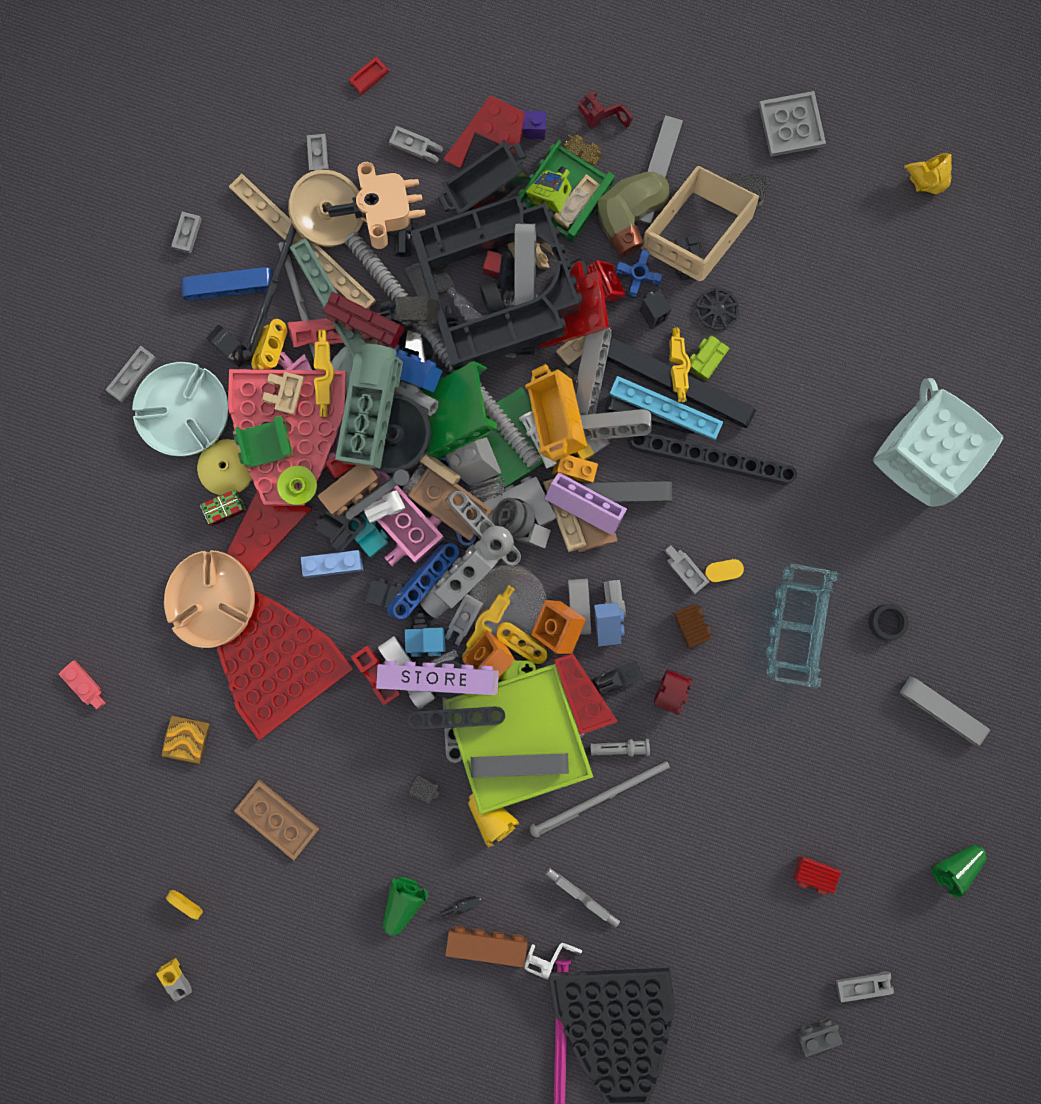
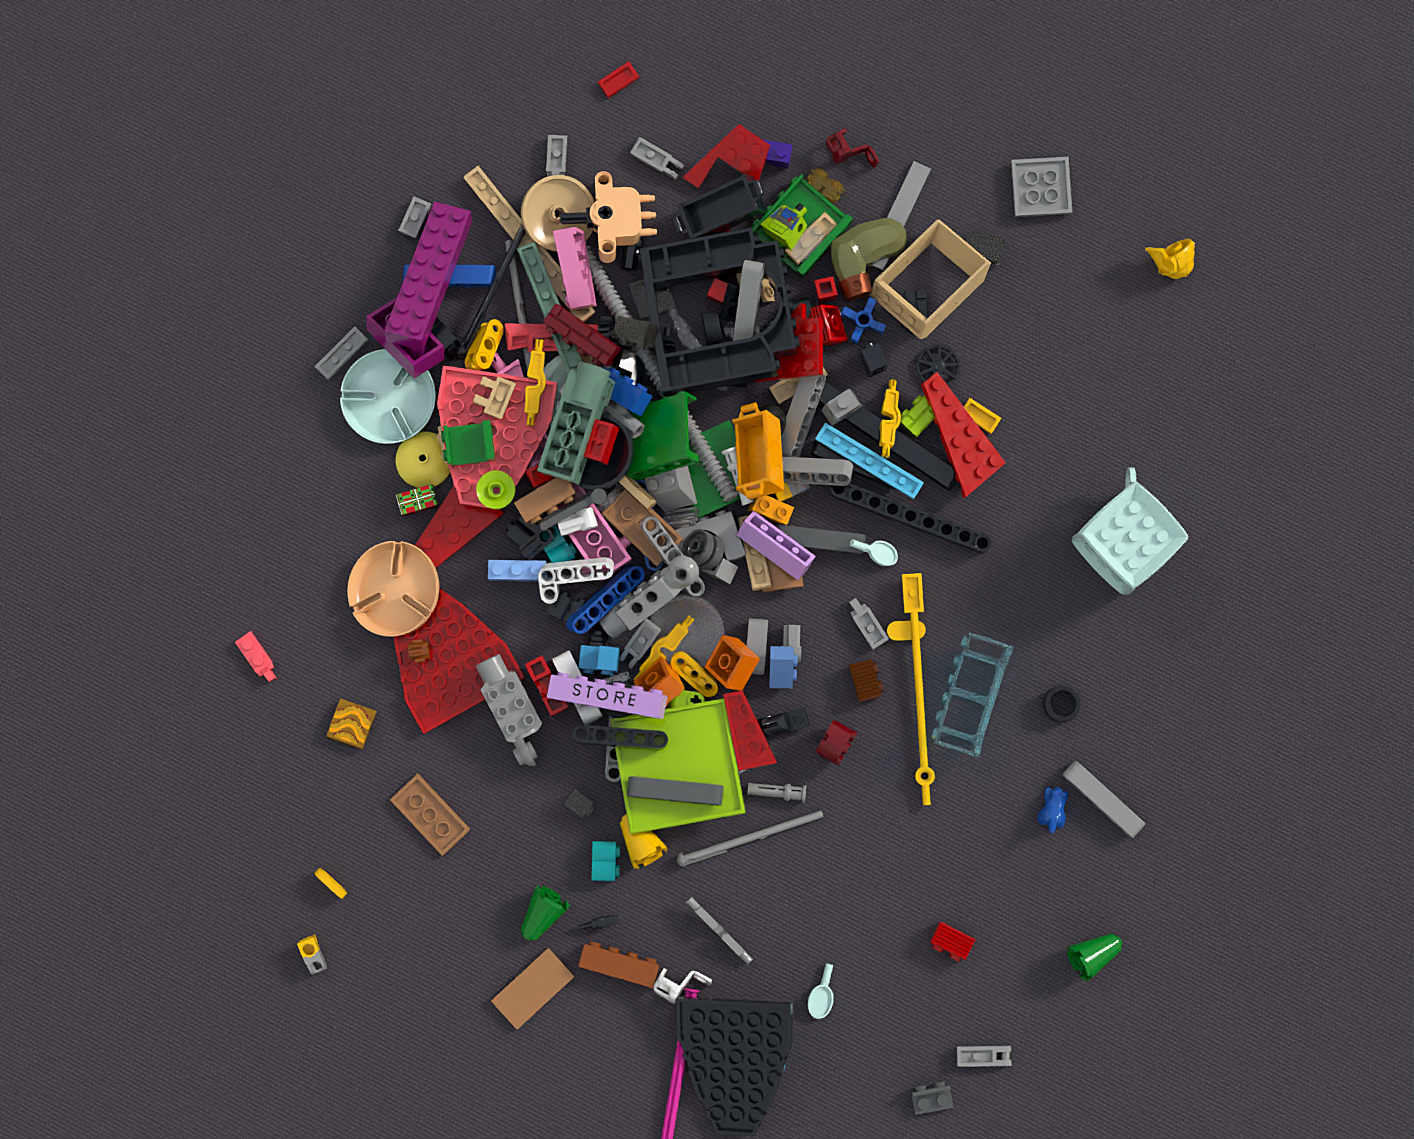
camera: 15 degrees right, 0 degrees up
(189, 348) = (412, 360): none -> magenta brick
(203, 284) = (428, 276): none -> magenta brick
(242, 658) = (418, 651): none -> dark orange gear
(342, 701) = (510, 707): none -> light grey brick
(348, 256) = (575, 268): none -> bright pink wedge
(390, 560) = (576, 576): none -> white beam
(396, 421) = (601, 441): none -> red hinge
(402, 982) = (532, 988): none -> medium nougat tile
(457, 842) = (604, 861): none -> teal brick
(598, 247) = (825, 289): none -> red brick
(631, 357) = (841, 407): none -> light grey torso
(688, 496) = (879, 551): none -> light aqua piece
(694, 950) = (821, 997): none -> light aqua piece
(728, 543) = (913, 604): none -> yellow bar
(755, 377) = (963, 440): none -> red wing
(765, 351) = (983, 417): none -> yellow tile
(896, 730) = (1053, 811): none -> blue animal

